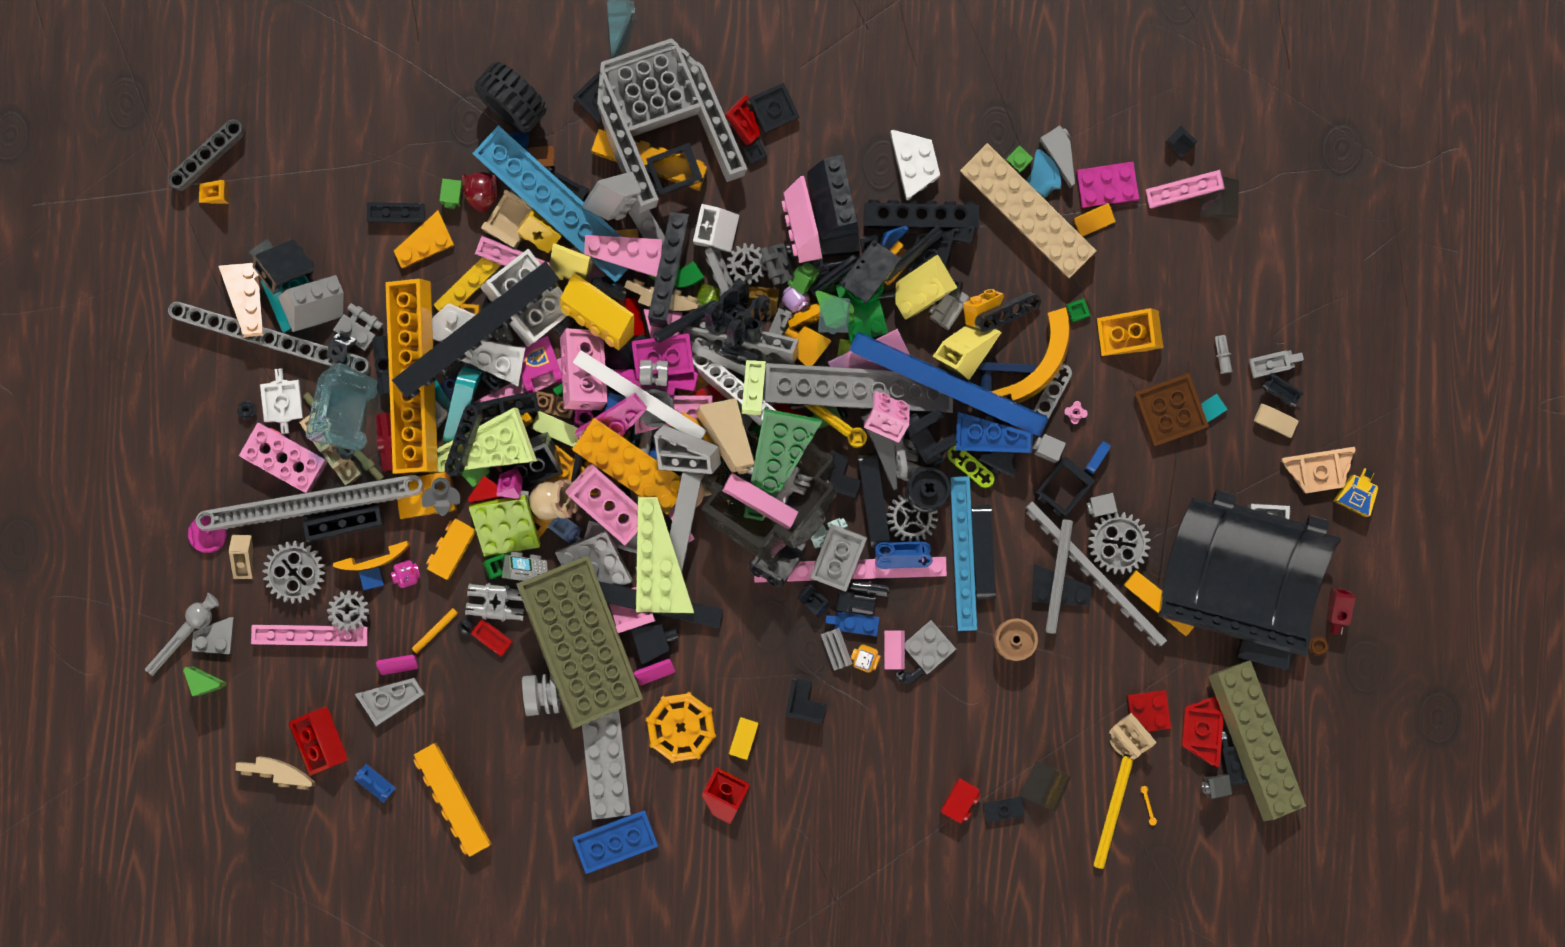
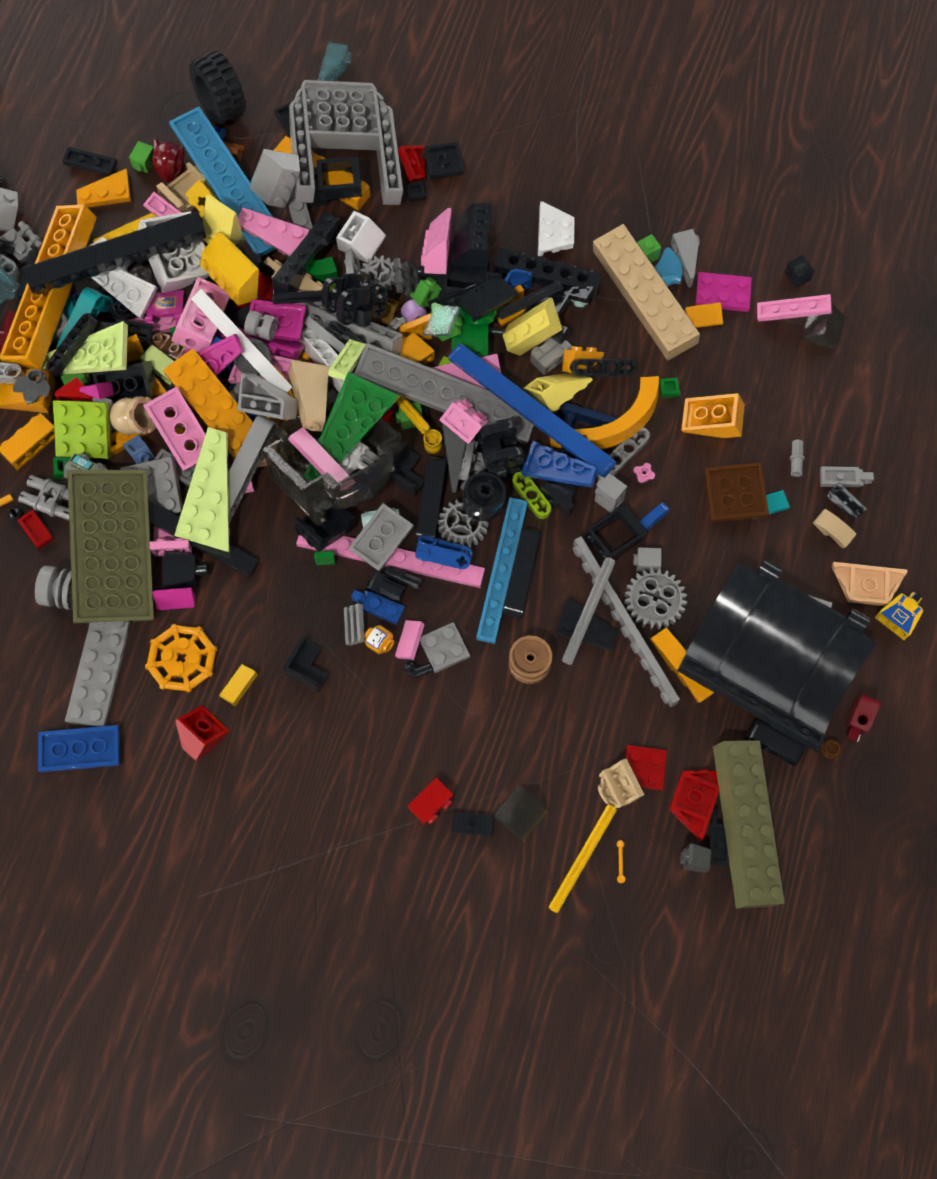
camera: 15 degrees right, 15 degrees down
(787, 590) = (324, 558): none -> green tile
(813, 600) = (345, 573): black bracket -> none

